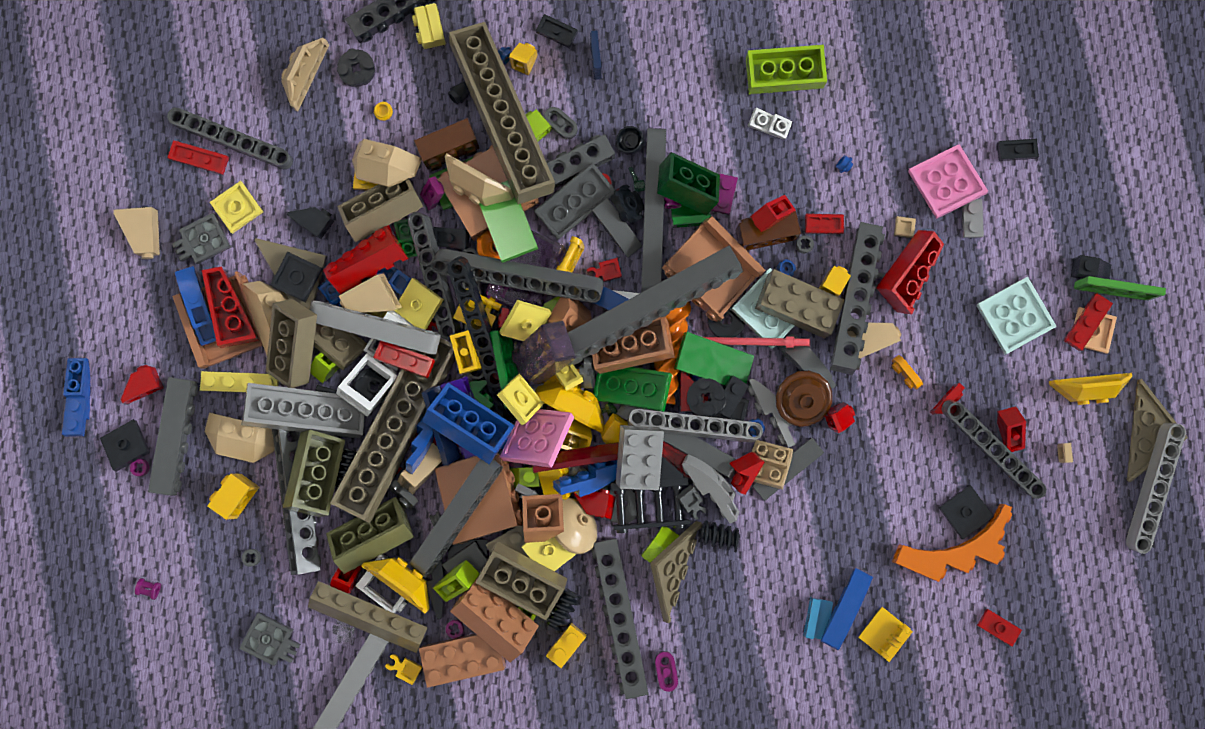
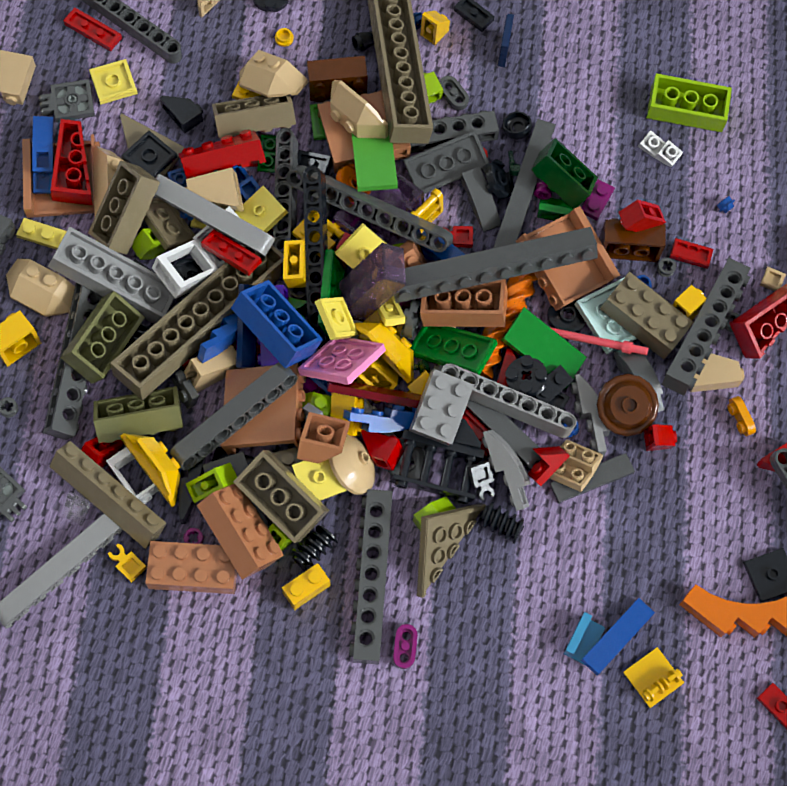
camera: 10 degrees right, 15 degrees down
(432, 192) = (308, 116): magenta plate -> none

